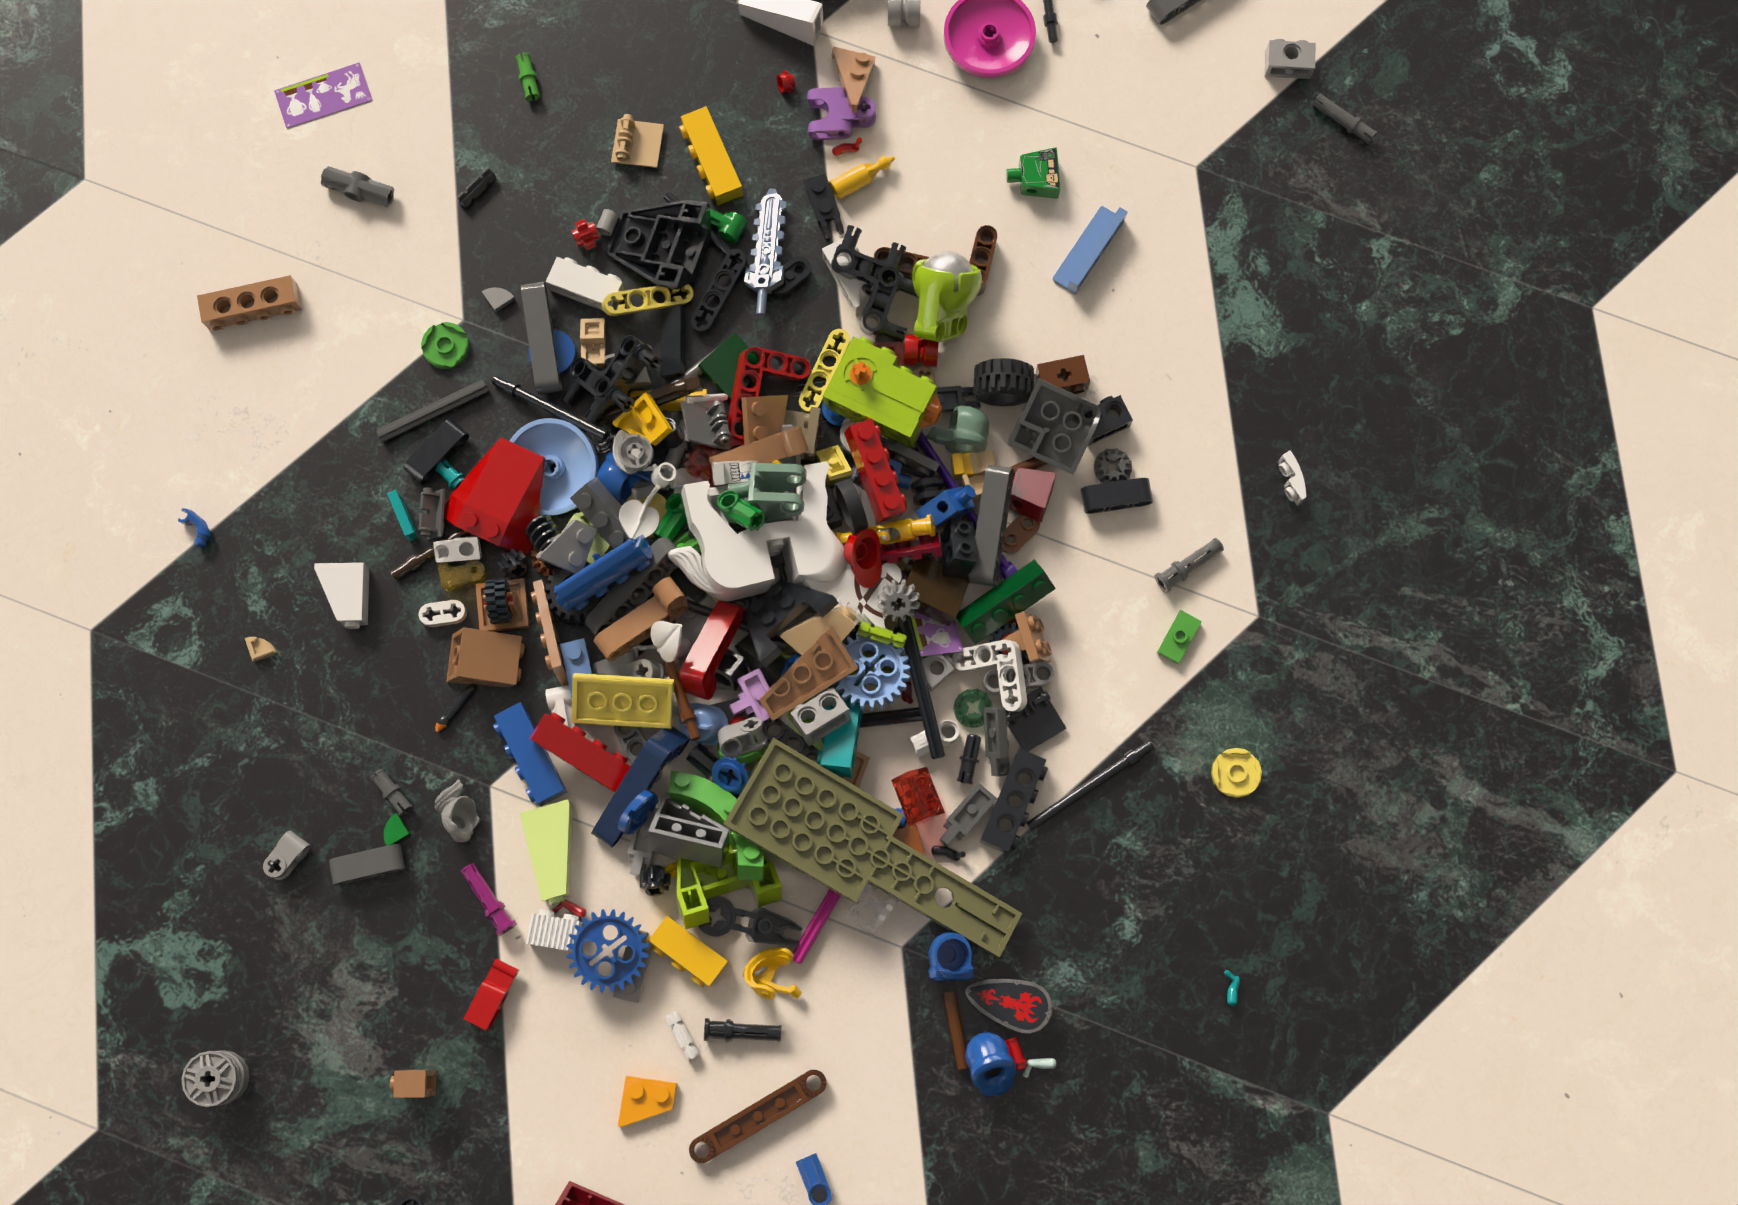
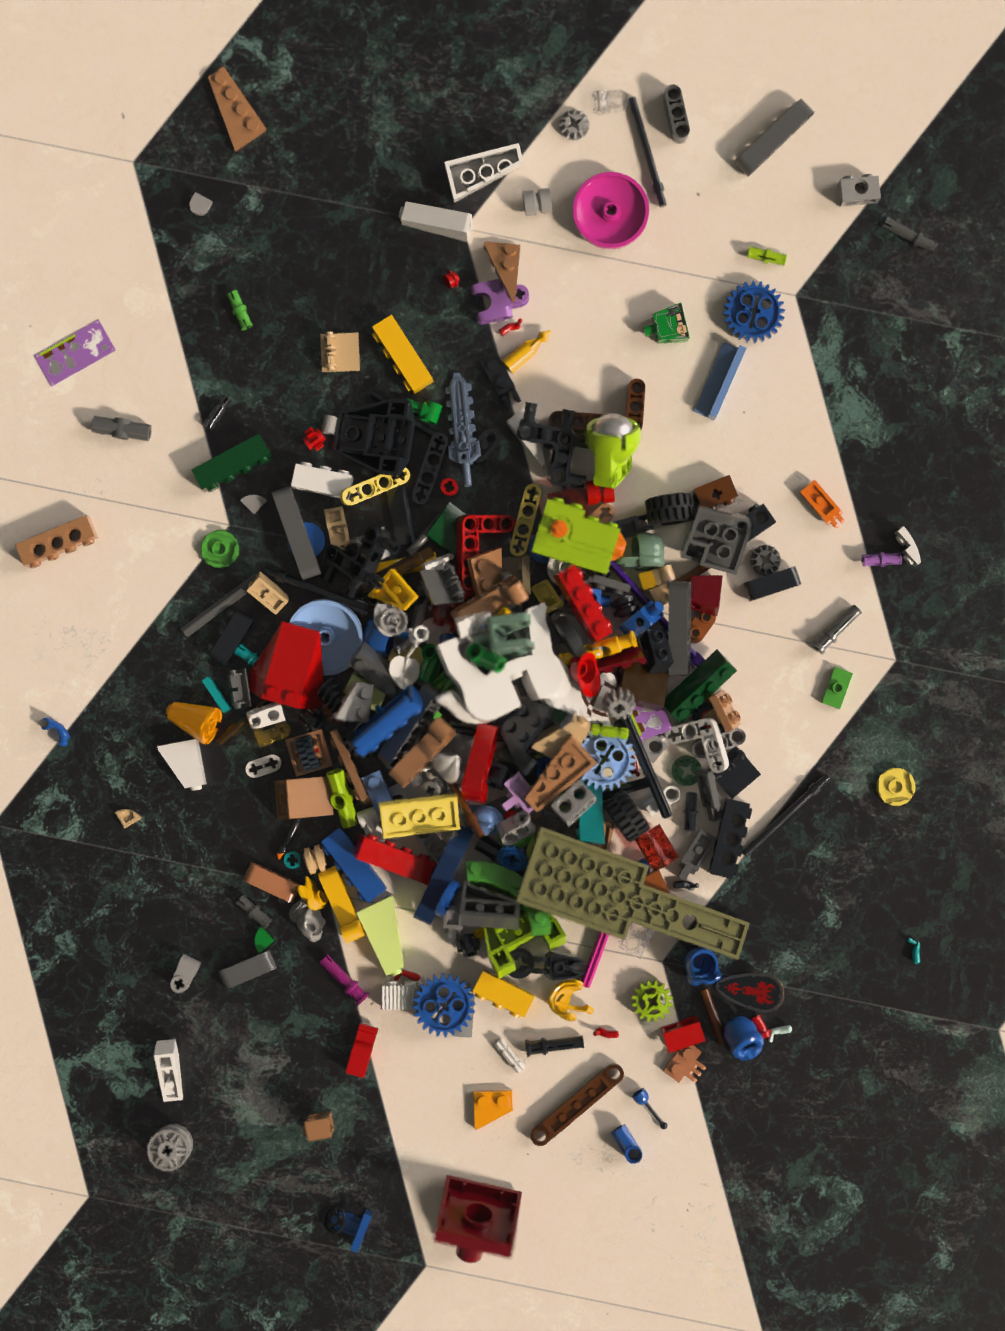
camera: 10 degrees left, 10 degrees up
(237, 977) = (168, 1069): none -> white slope
(370, 541) = (195, 720): none -> light orange cone
(421, 759) = (271, 882): none -> nougat beam
(459, 743) = (297, 855): none -> teal bush
(468, 782) = (314, 898): none -> yellow plate
(480, 246) = (231, 463): none -> dark green brick
(481, 738) = (315, 859): none -> tan wheel
(491, 403) = (268, 593): none -> tan hinge
(504, 801) = (341, 904): none -> yellow beam
(531, 666) = (342, 798): none -> lime piece
(741, 325) = (454, 484): none -> red bush
(813, 1029) = (607, 1034): none -> red piece
(844, 1122) = (641, 1097): none -> hinge
(886, 747) = (626, 815): none -> black tyre
(888, 1003) = (645, 1011): none -> lime gear
(909, 1085) = (684, 1063): none -> nougat hinge
(912, 1045) = (682, 1034): none -> red hinge
(1153, 110) = (766, 256): none -> lime pin
(1162, 182) = (769, 316): none -> blue gear
(1193, 411) = (822, 504): none -> orange hinge
(1257, 489) = (881, 559): none -> medium lavender pin

